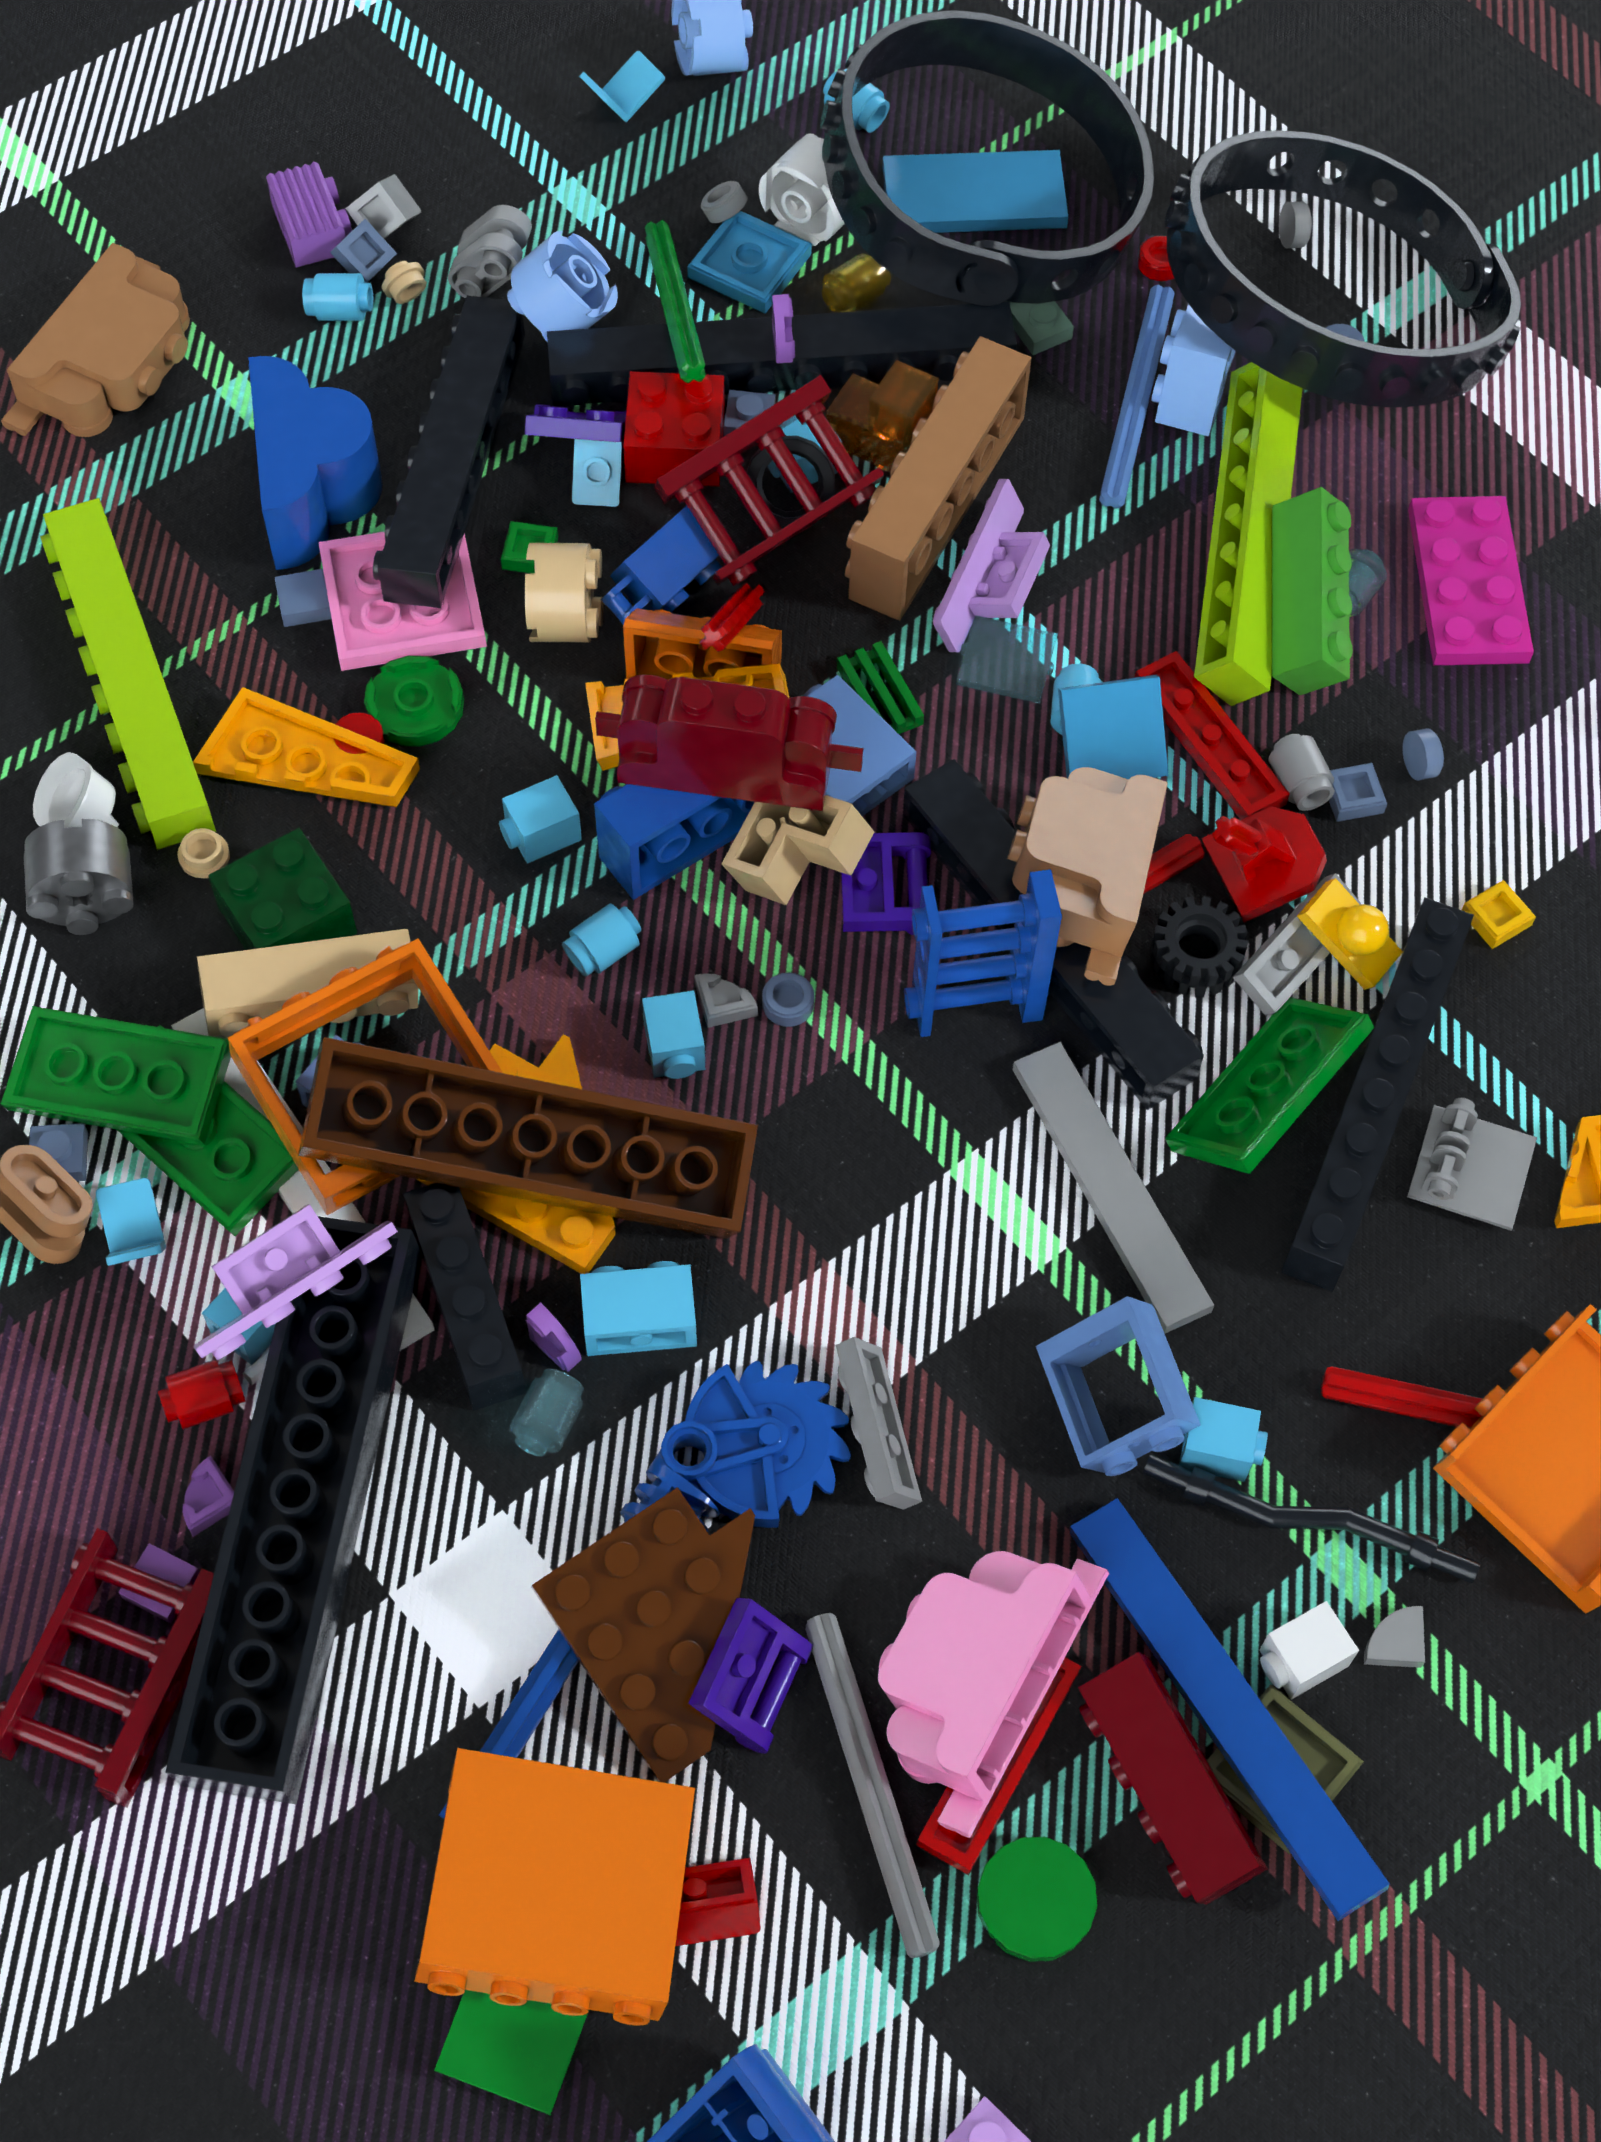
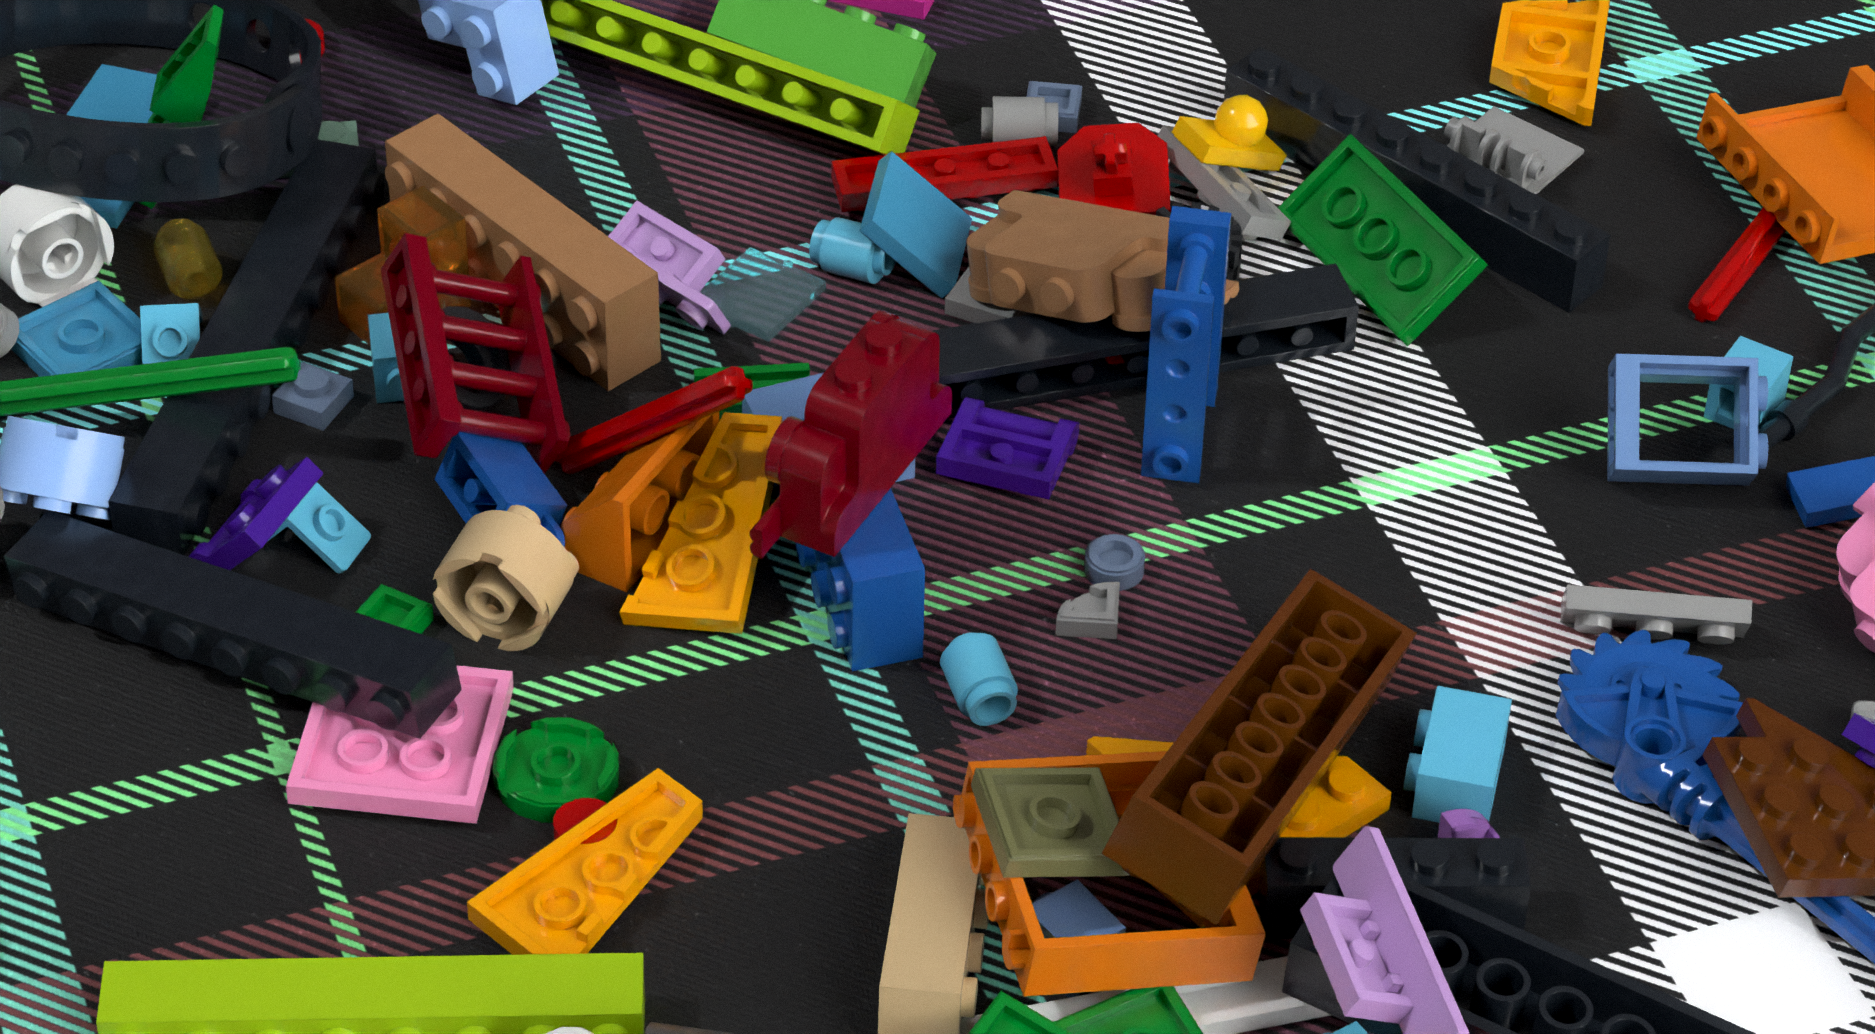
camera: 70 degrees left, 20 degrees down
(203, 853) = (684, 999): tan plate -> none
(282, 896) = (806, 931): dark green brick -> none
(303, 597) = (345, 834): sand blue tile -> none
(311, 457) = (156, 755): blue brick -> none
(371, 1003) = (1047, 820): none -> olive tile
(540, 819) = (795, 687): medium azure brick -> none
(547, 1413) = (1564, 859): clear light blue brick -> none
(670, 423) = (327, 422): red brick -> none
(674, 1034) = (1132, 649): medium azure brick -> none
(757, 299) = (169, 331): none -> medium azure bracket
(782, 328) = (250, 301): medium lavender tile -> none
(782, 841) = (939, 485): tan brick -> none
(949, 192) = (187, 77): none -> green slope
(1113, 1187) = (1434, 390): light grey tile -> none
(1136, 397) = (475, 106): medium blue axle -> none
(1423, 754) = (1039, 44): sand blue tile -> none
(1498, 914) = (1226, 52): yellow tile -> none

